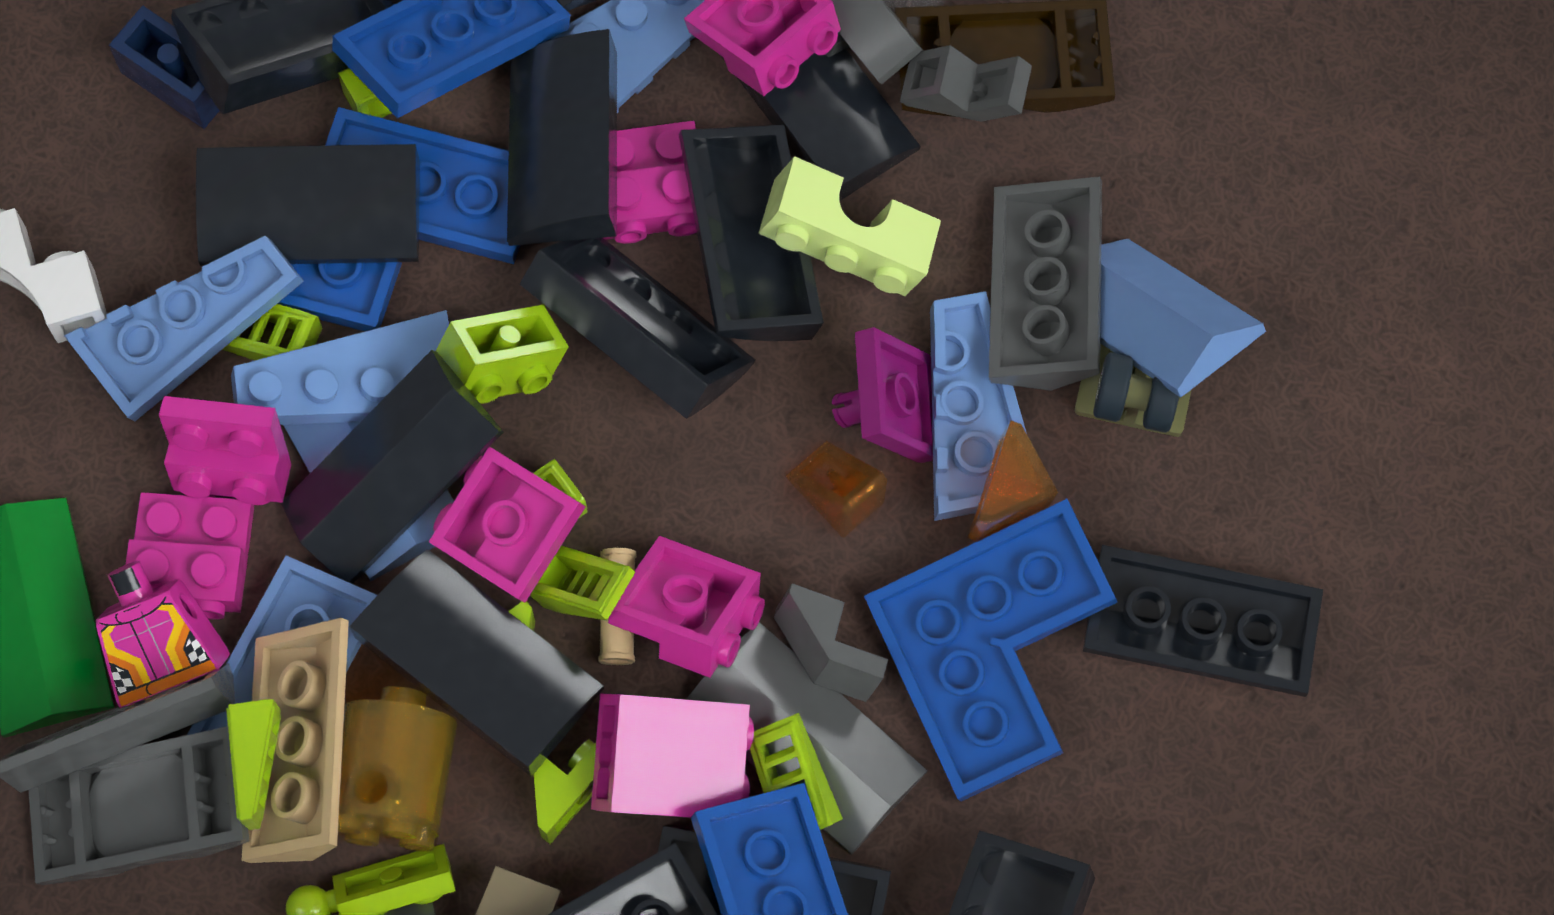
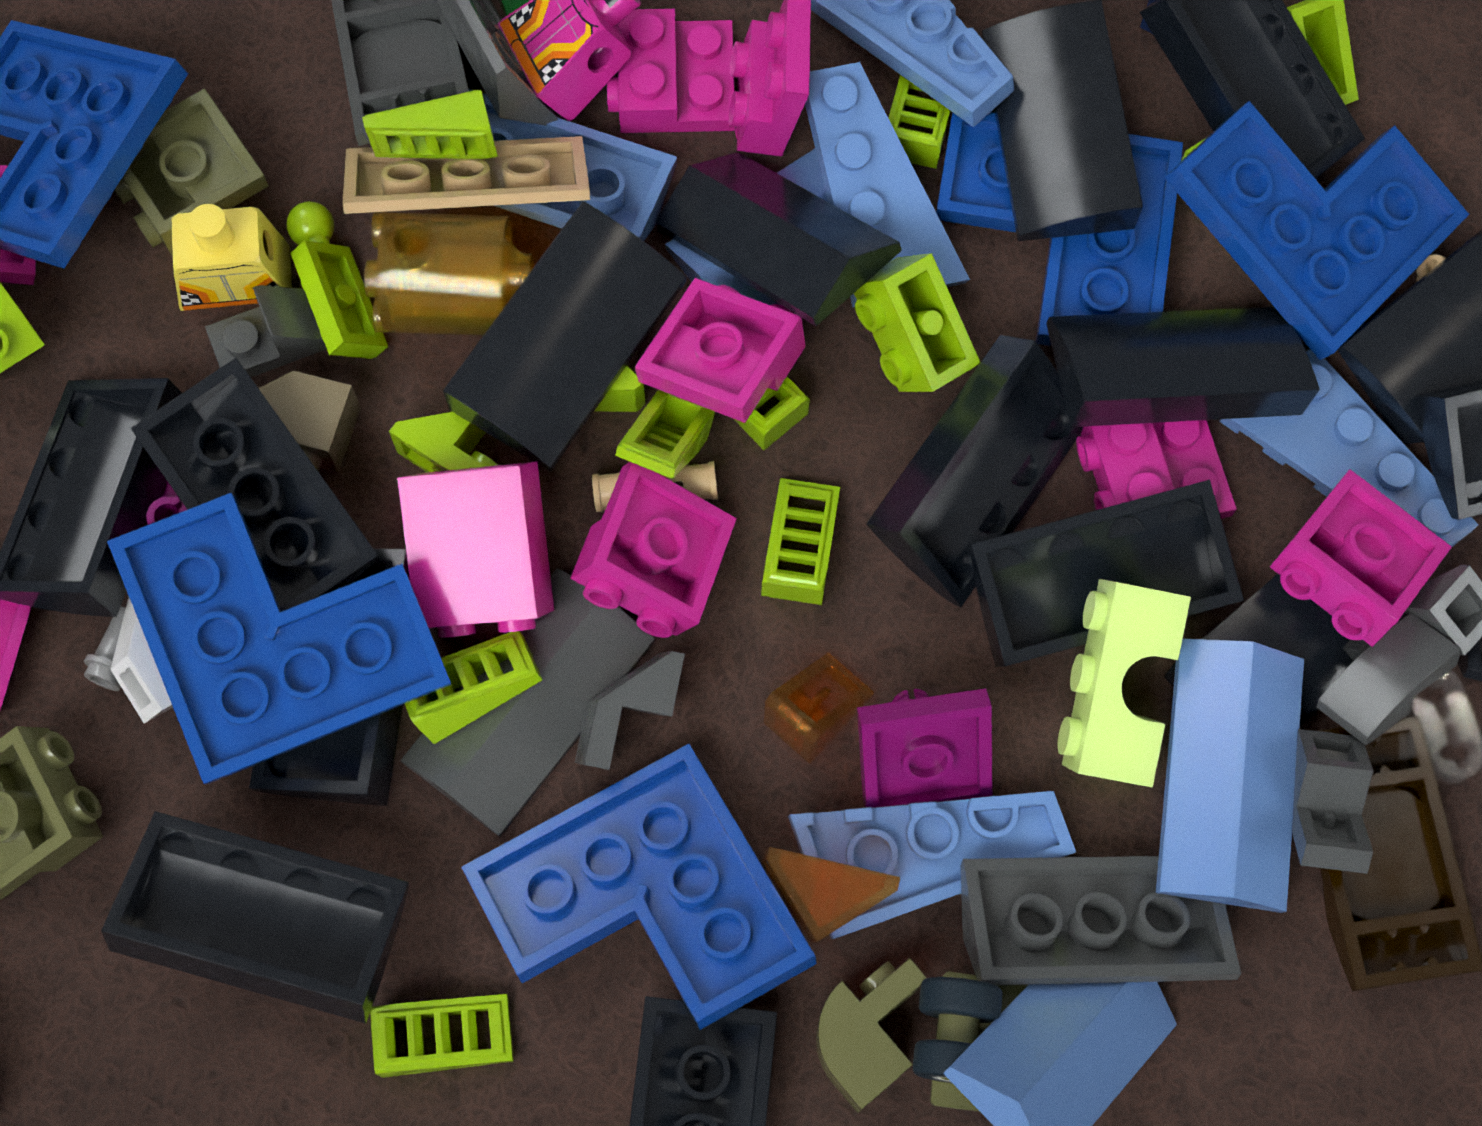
camera: 85 degrees right, 0 degrees up
(713, 513) = (791, 584): none -> lime slope
(934, 159) = (1231, 774): none -> medium blue slope
(1111, 873) = (384, 1042): none -> lime slope
(1125, 488) = (851, 1042): none -> olive brick

